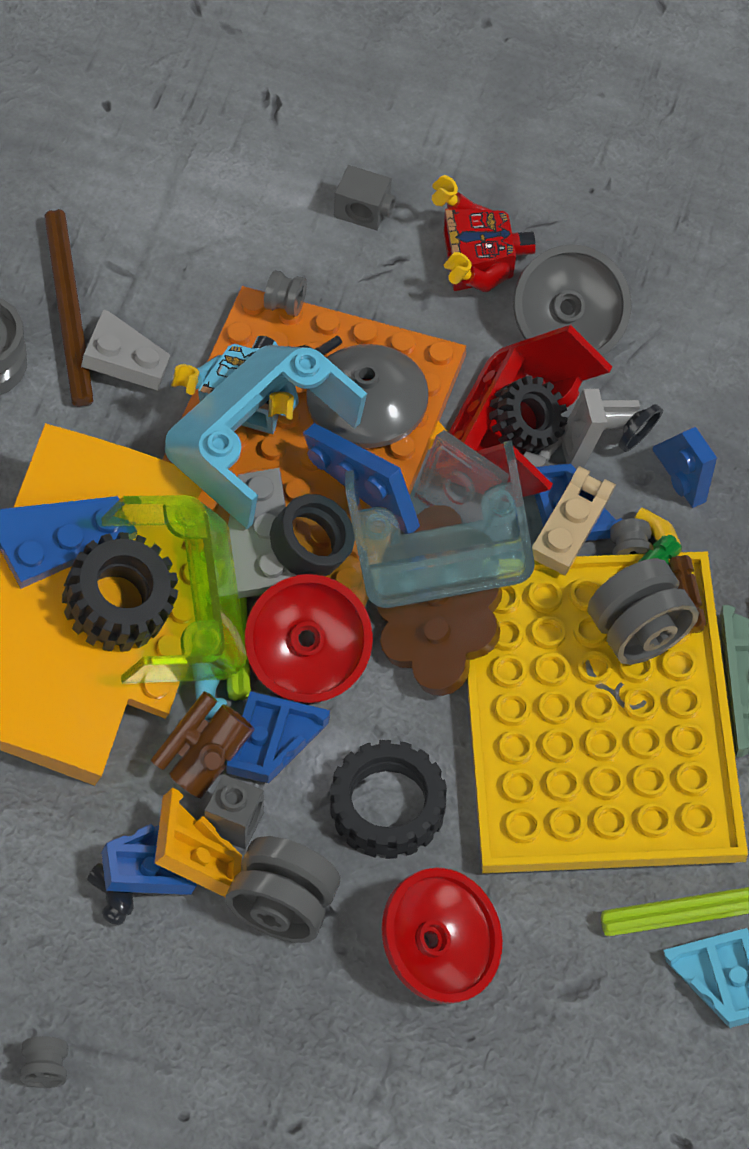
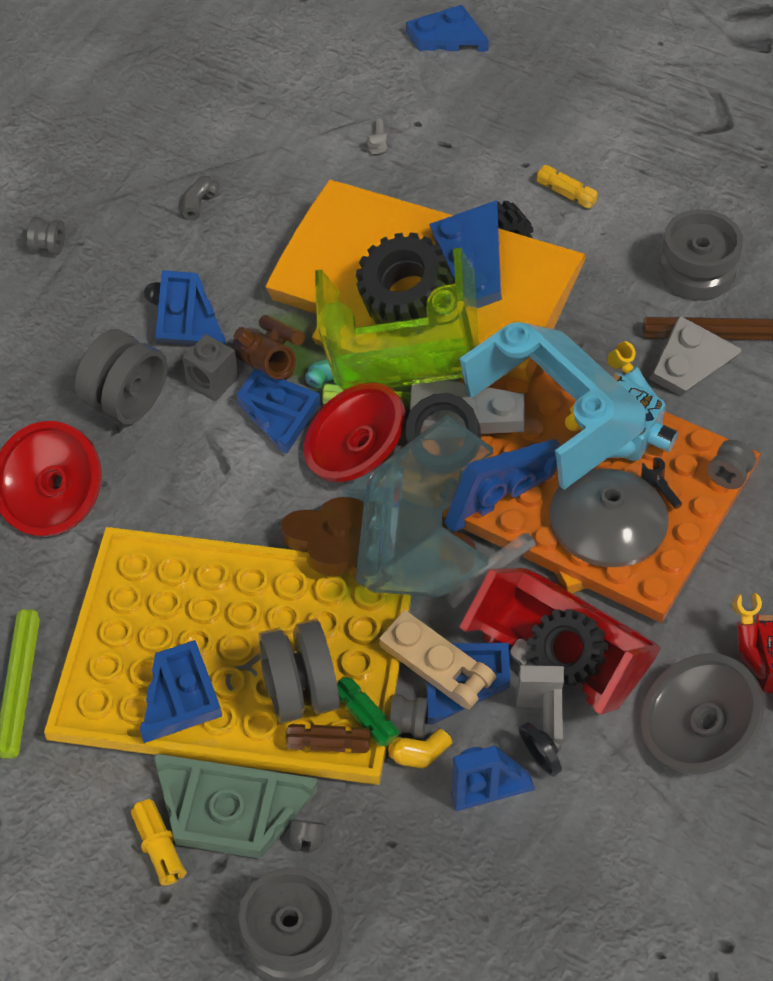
camera: 105 degrees right, 5 degrees down
(194, 847) = (181, 325): light orange wing -> none
(395, 759) = (201, 508): black tyre -> none
(678, 731) = (179, 693): none -> blue wing

